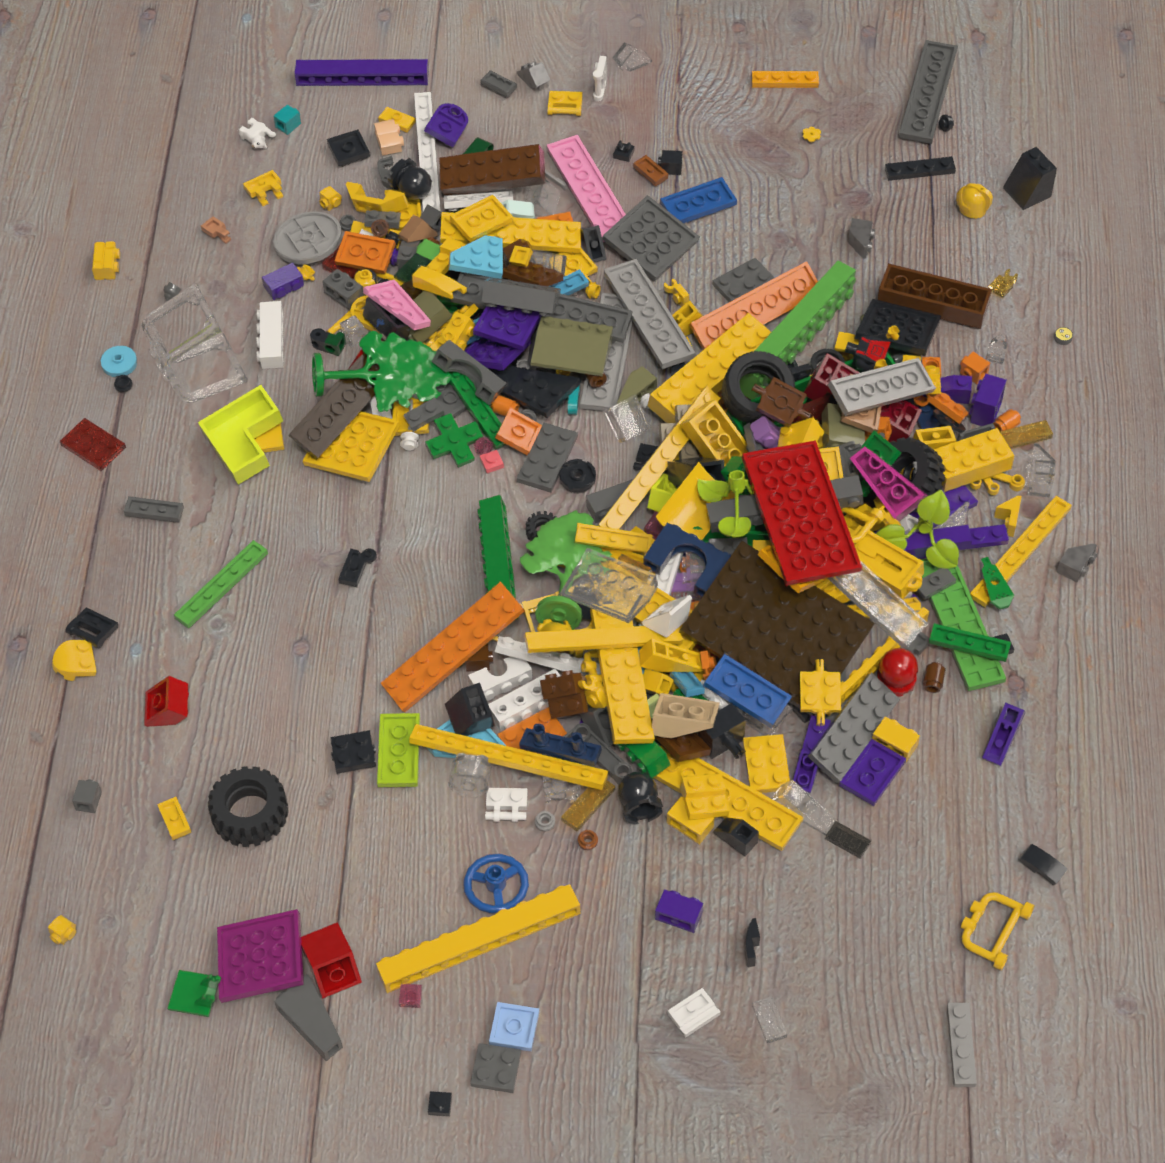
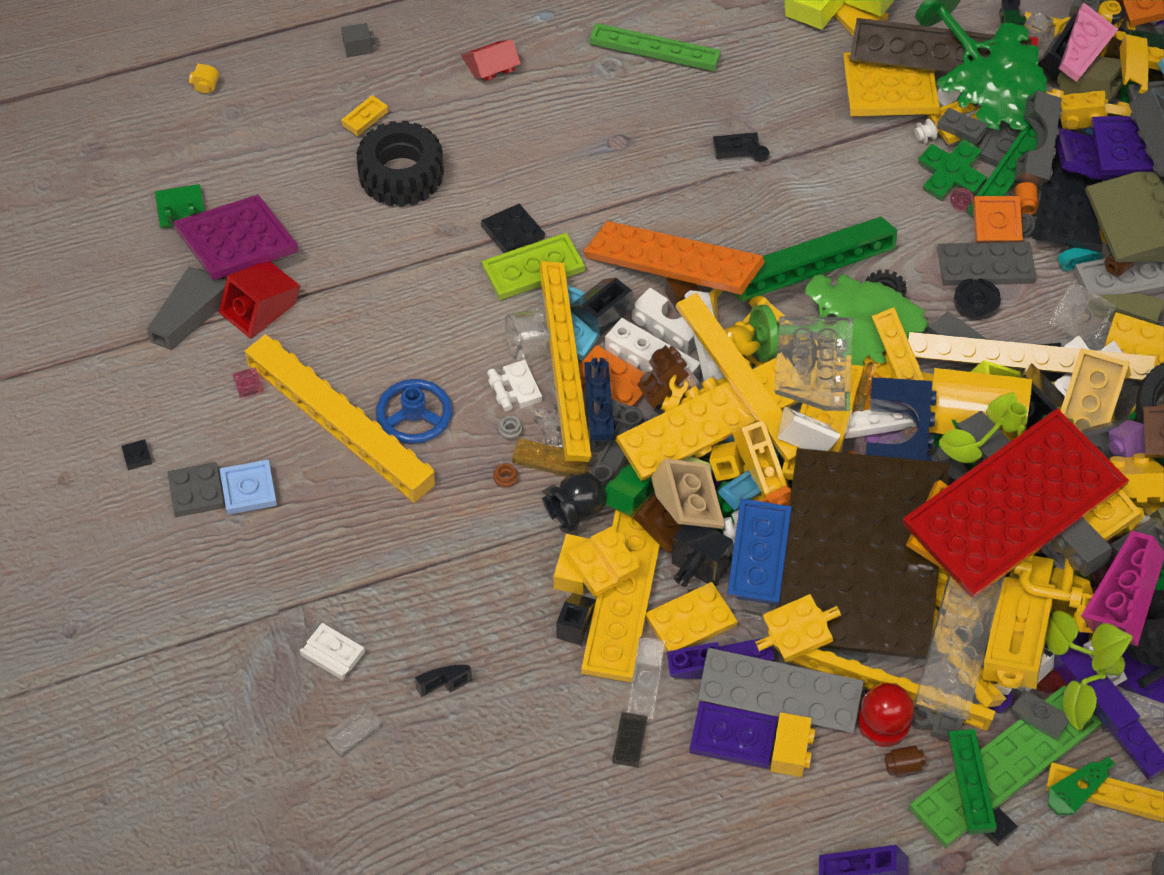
camera: 65 degrees right, 0 degrees up
(491, 461) = (948, 215): coral plate -> none
(679, 910) = (452, 593): dark purple brick -> none

